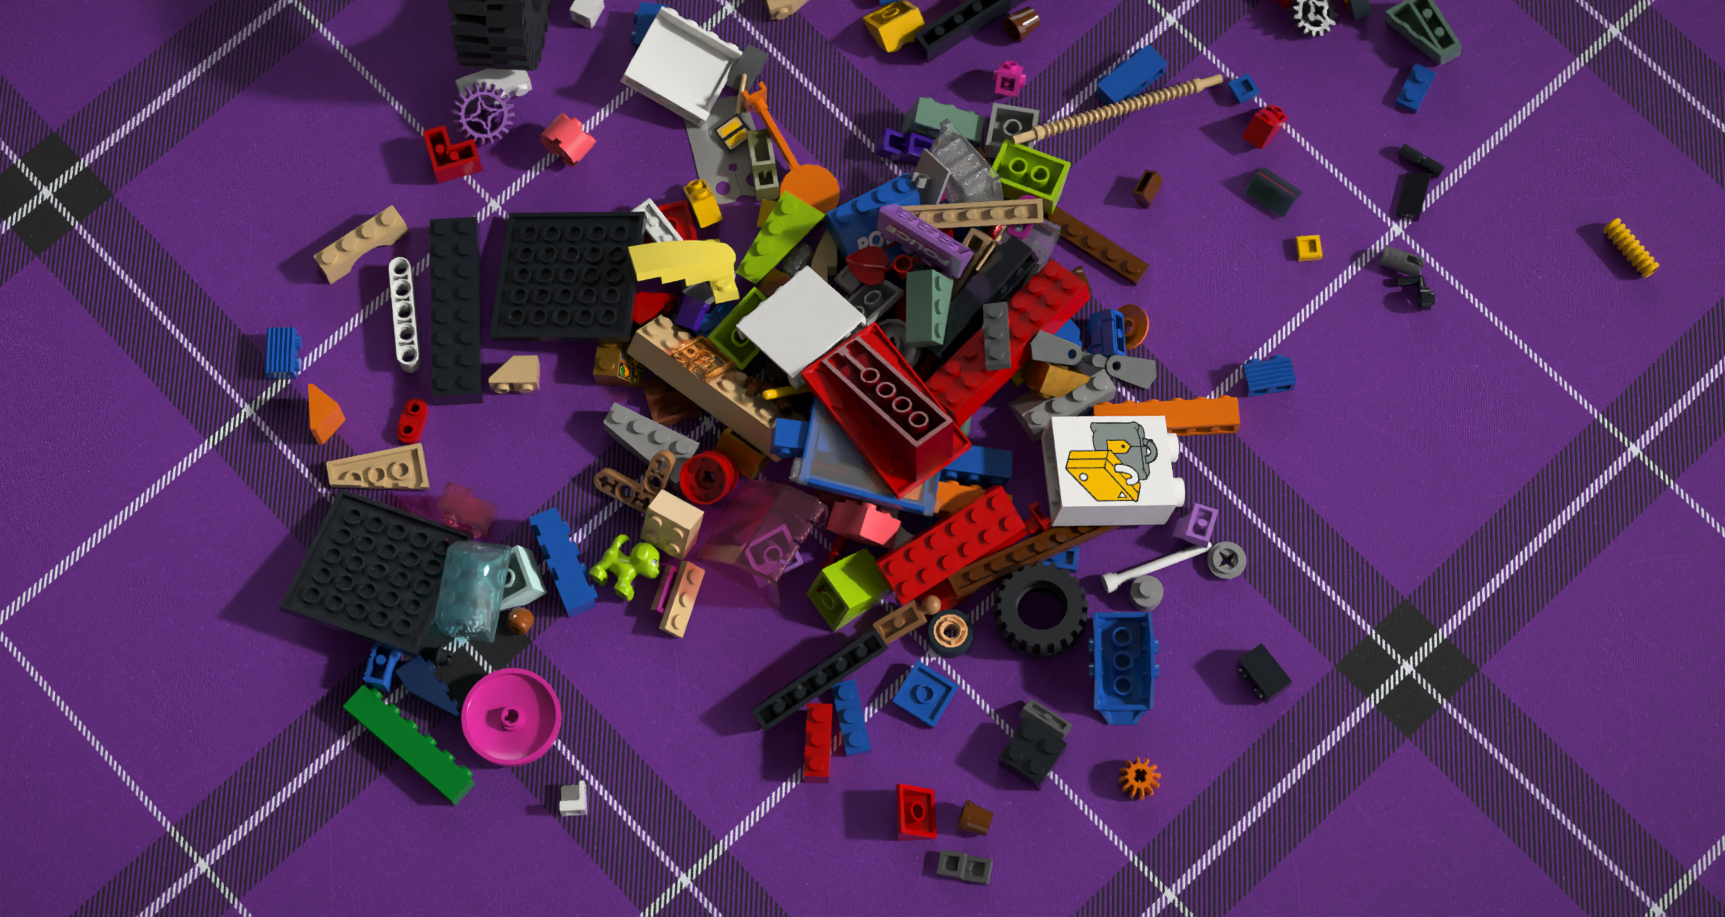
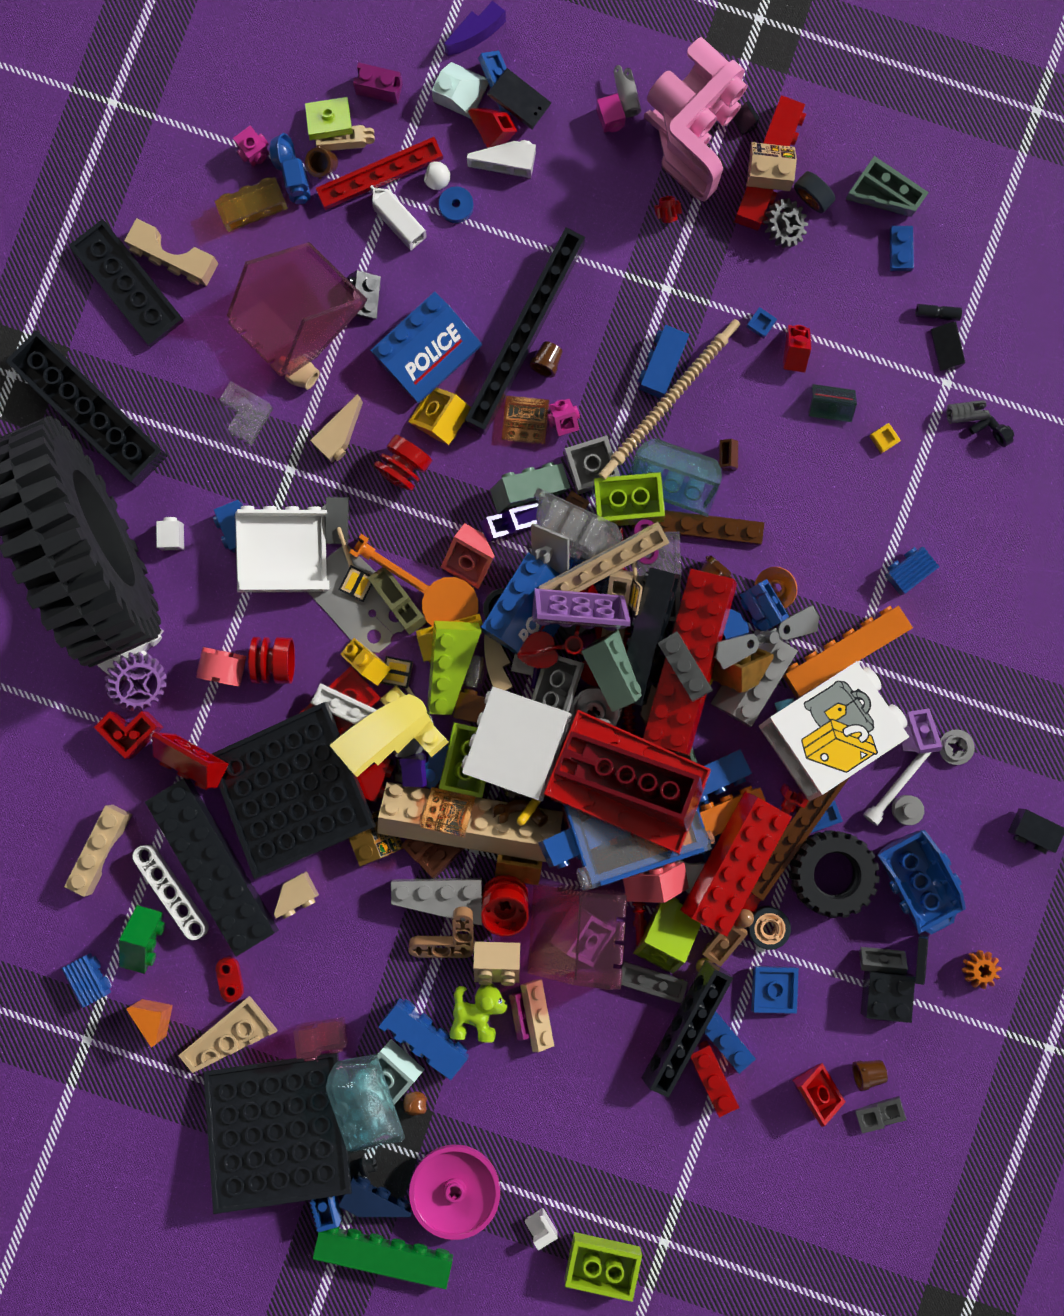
camera: 30 degrees left, 15 degrees up
(350, 338) = (138, 939): none -> green brick
(489, 203) = (188, 760): none -> red slope
(613, 861) = (603, 1266): none -> lime brick
(617, 156) = (269, 660): none -> red wheel
(727, 229) = (399, 673): none -> piece
(809, 625) = (653, 982): none -> dark grey plate
(838, 44) = (402, 463): none -> red wheel
(850, 157) = (469, 556): none -> coral slope
(972, 68) = (525, 419): none -> clear orange tile
(1083, 732) = (921, 959): none -> black tile
(1092, 183) = (686, 476): none -> clear light blue windscreen

